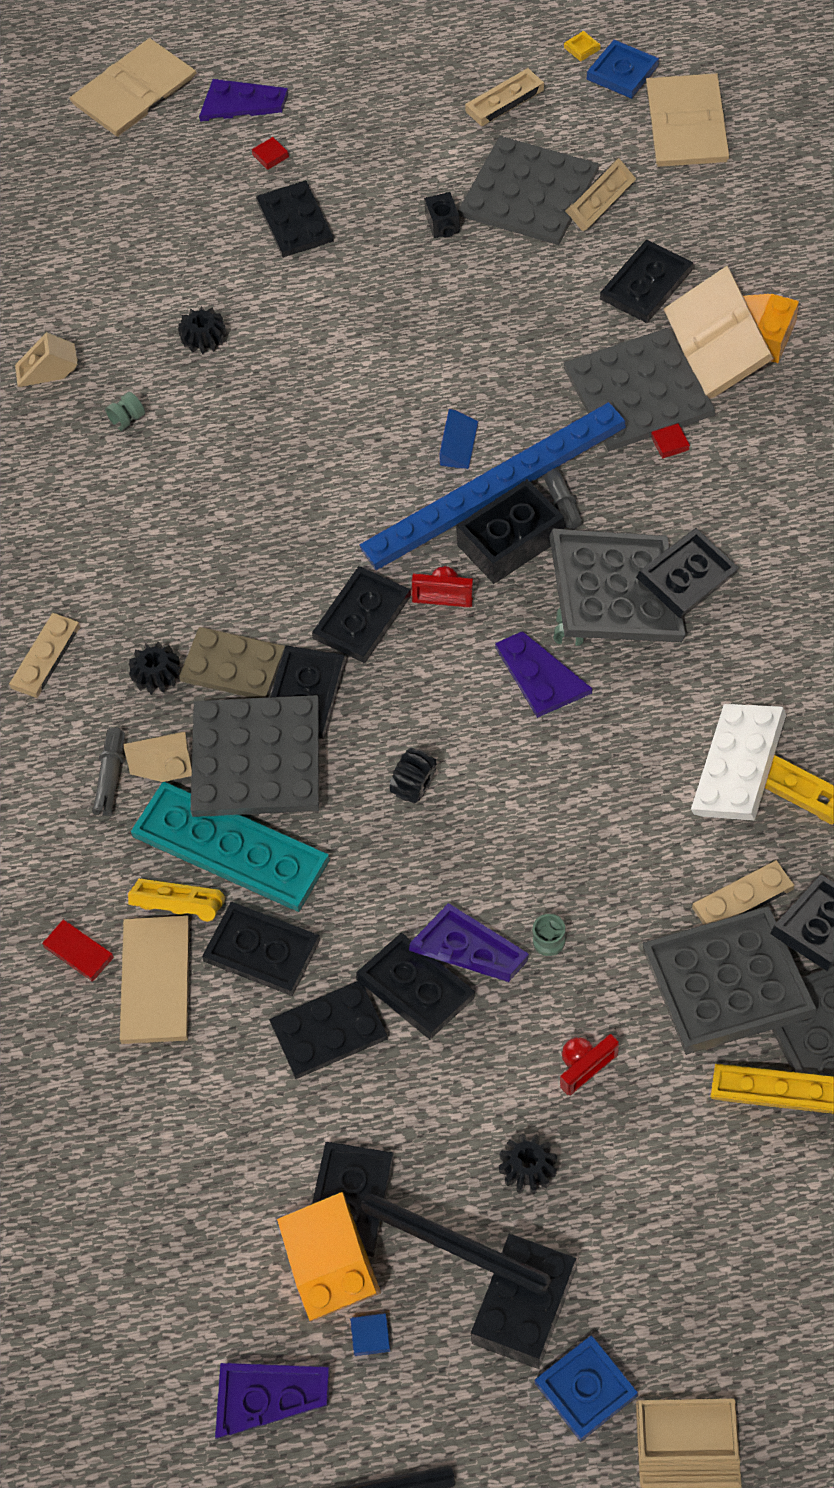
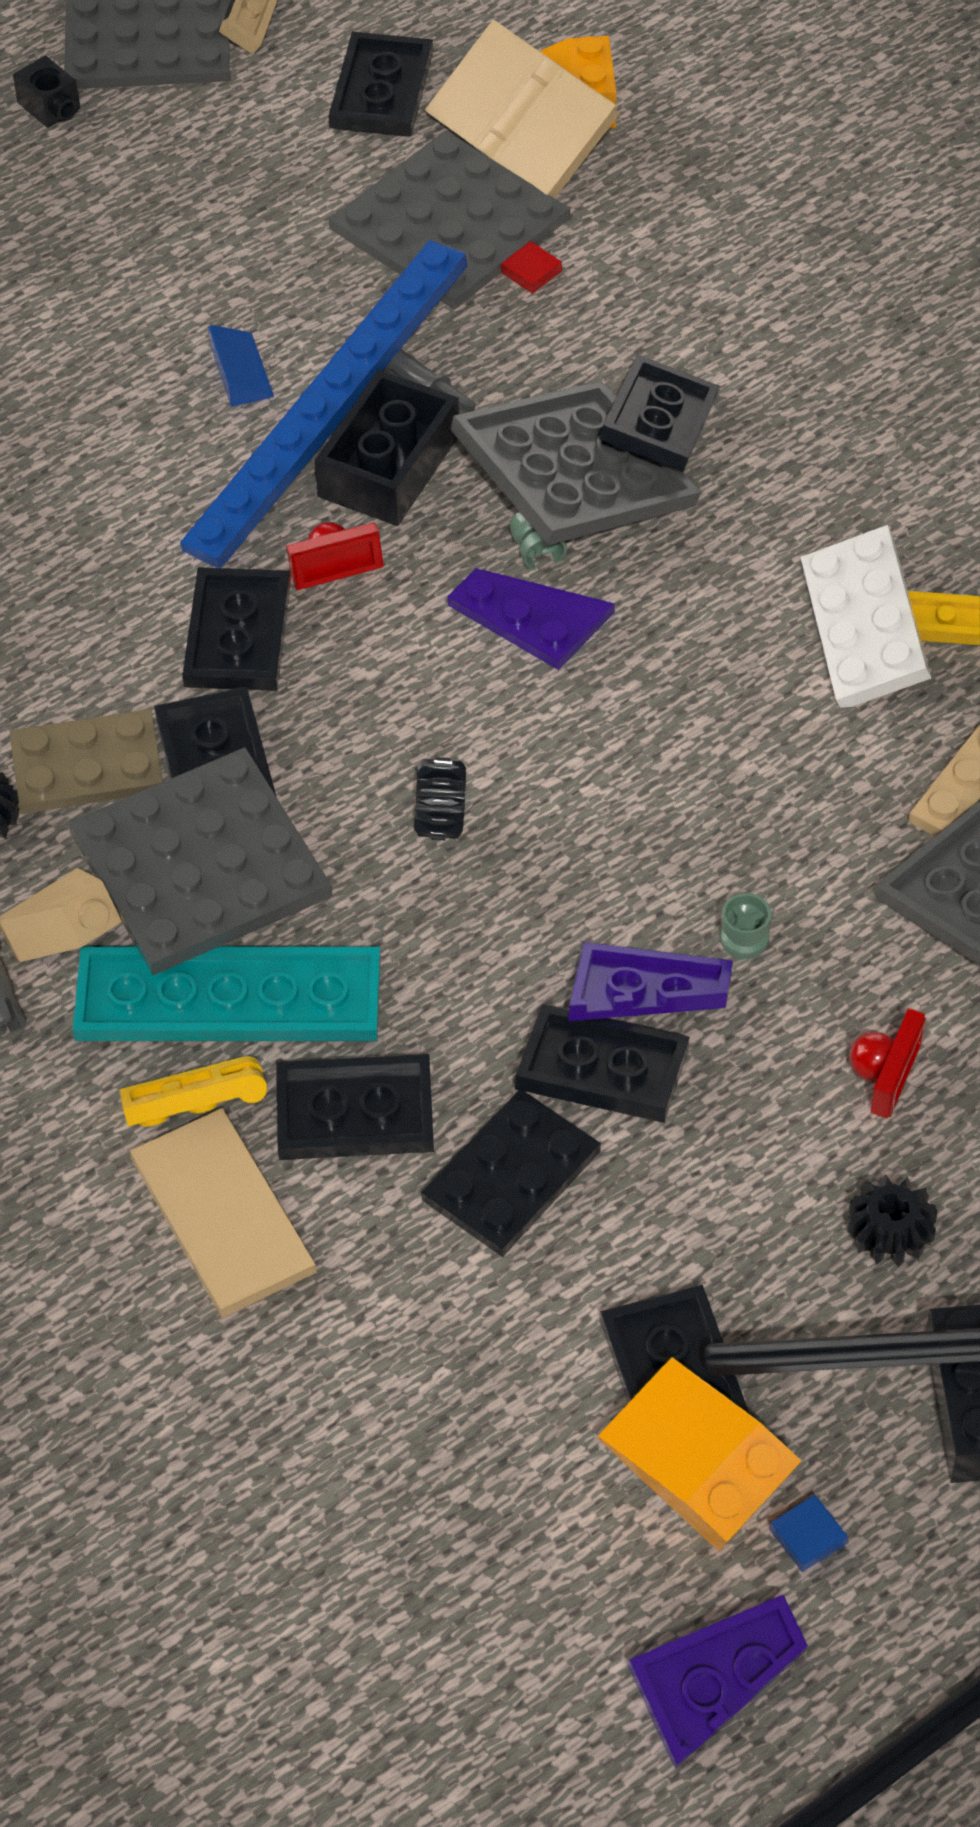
camera: 30 degrees left, 5 degrees down
(77, 950) = (83, 1221): red tile -> none

